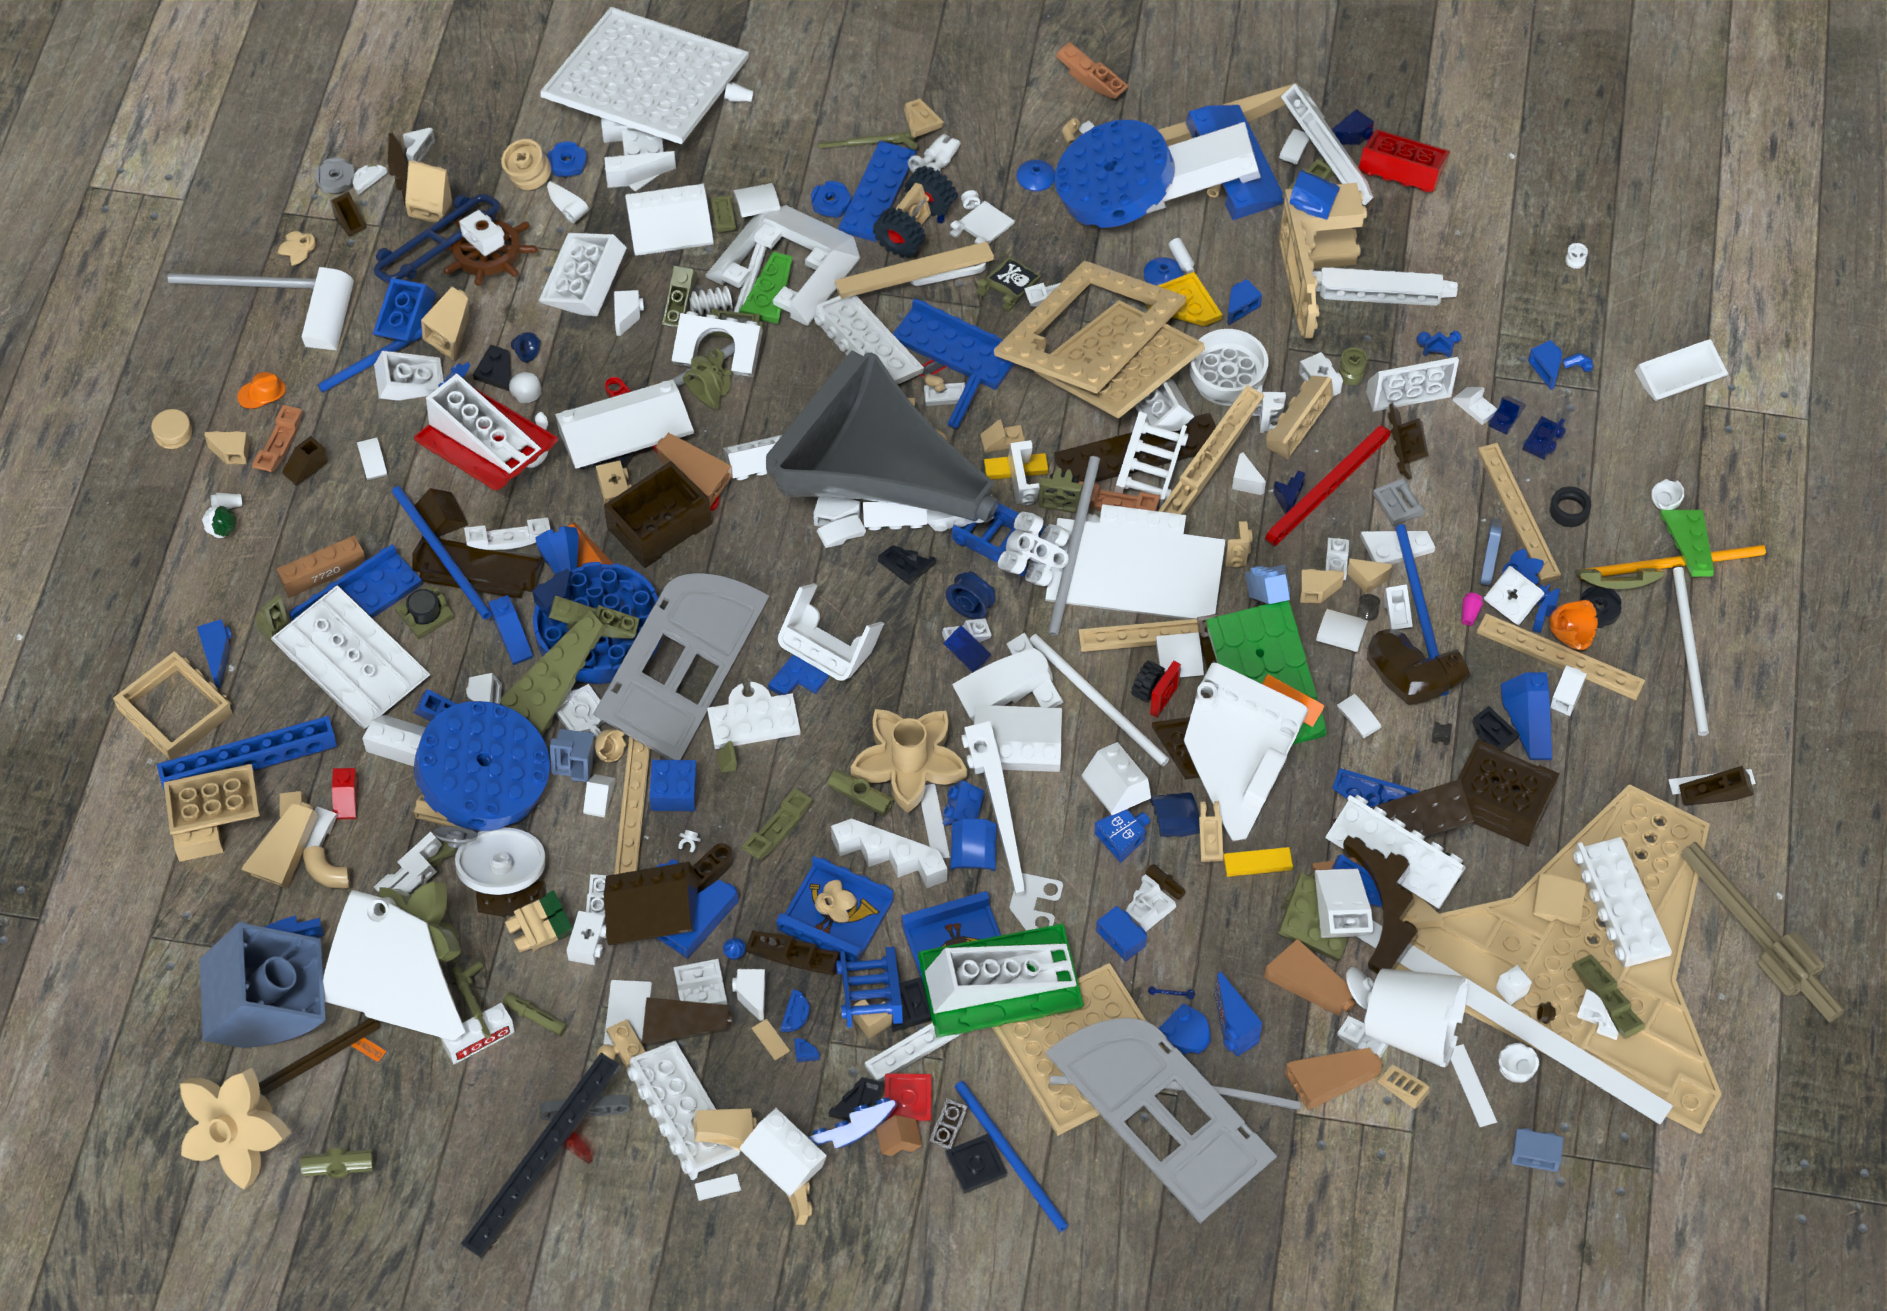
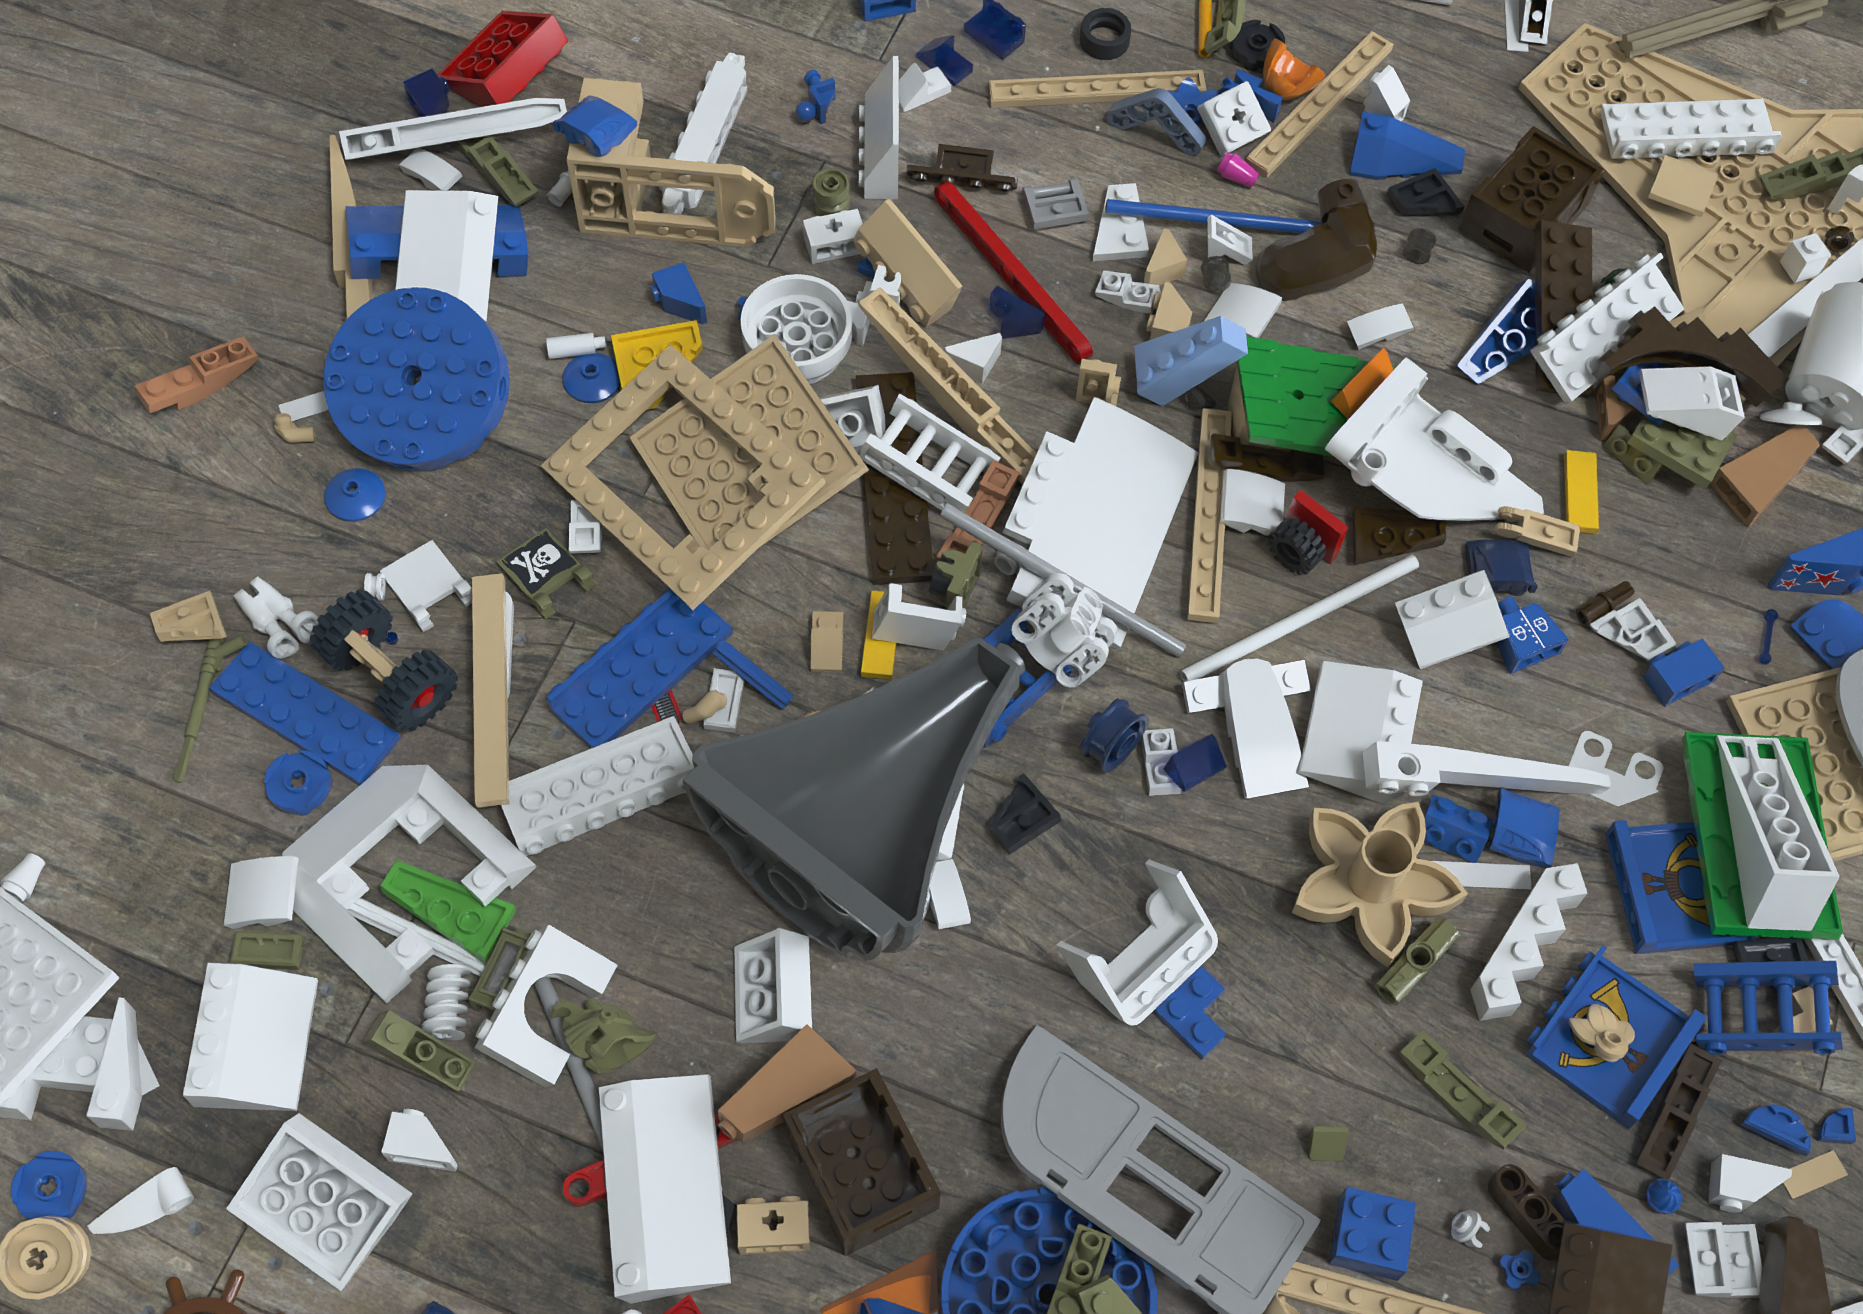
camera: 80 degrees left, 5 degrees up
(753, 717) = (1256, 1092): white plate -> none

